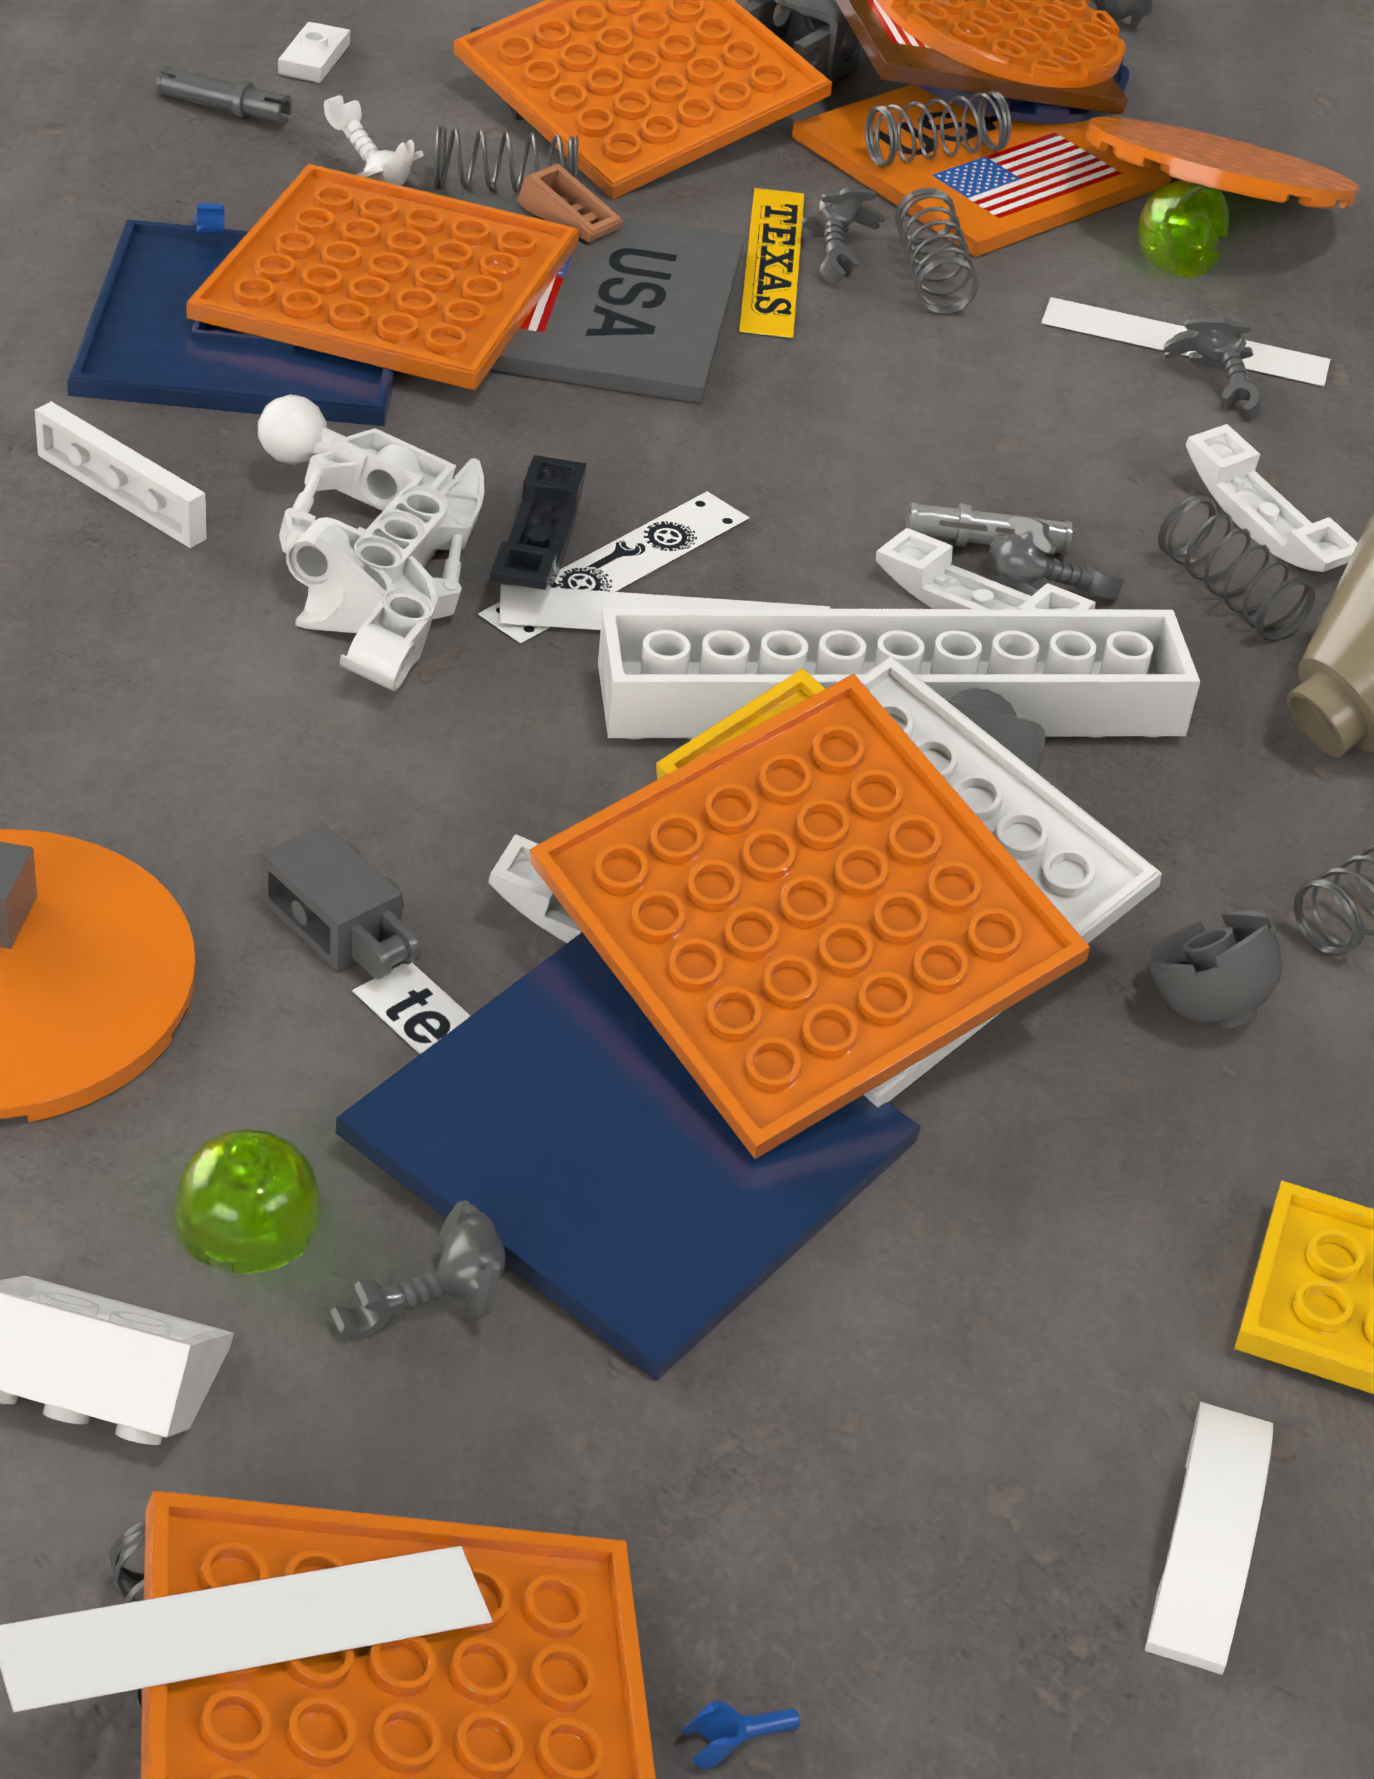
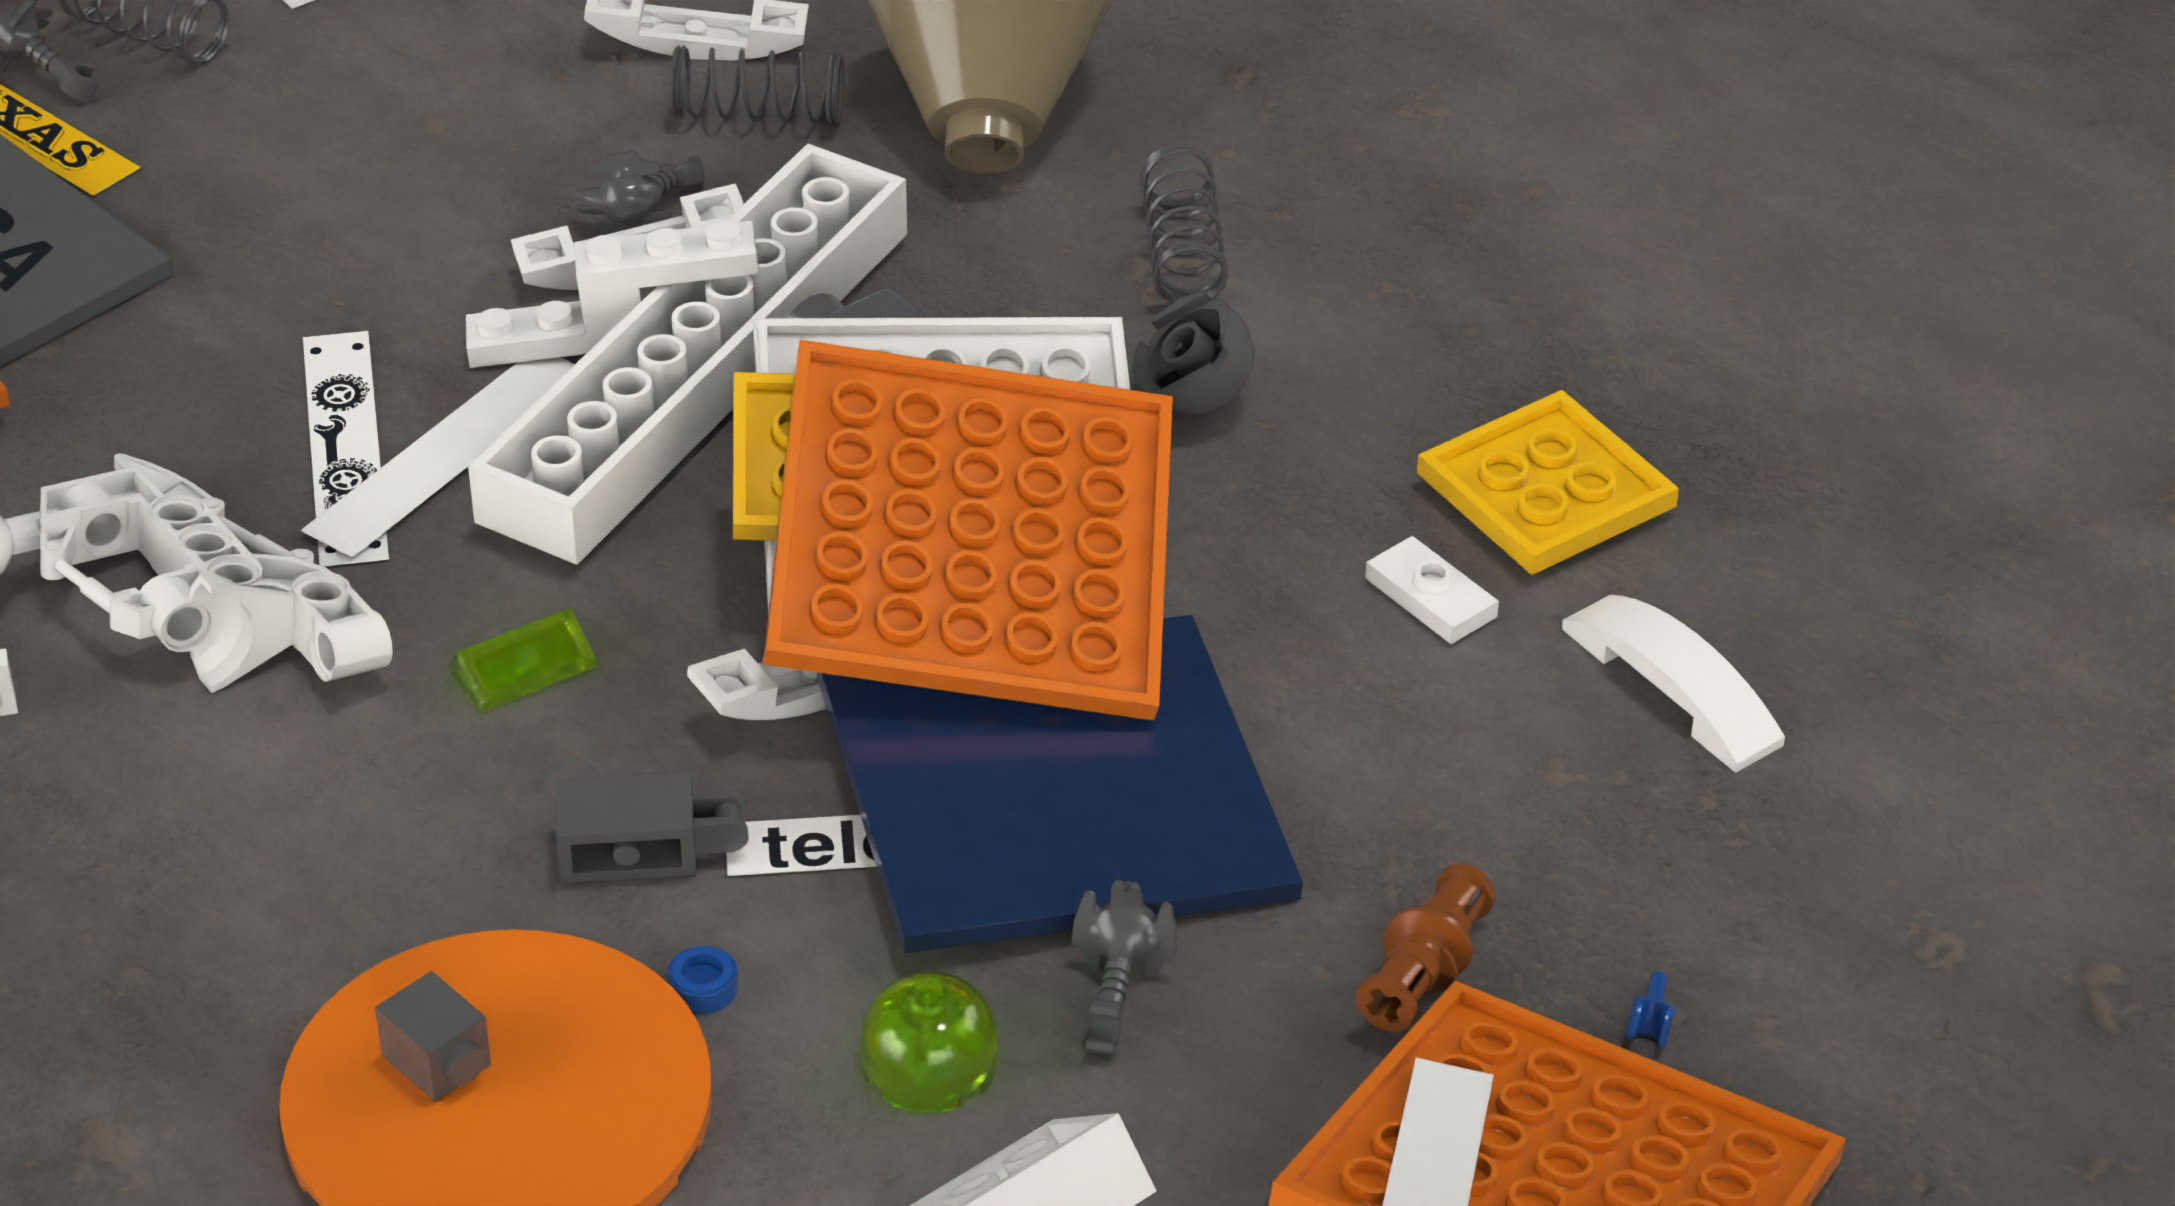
camera: 50 degrees left, 0 degrees up
(215, 1029) = (704, 978): none -> blue tile
(474, 759) = (523, 660): none -> clear neon green slope
(542, 524) = (256, 467): black slope -> none
(645, 1494) = (1426, 948): none -> dark orange piece
(899, 578) = (609, 288): none -> white bracket
(926, 521) = (534, 205): light grey pin -> none
(1135, 1283) = (1431, 589): none -> white plate

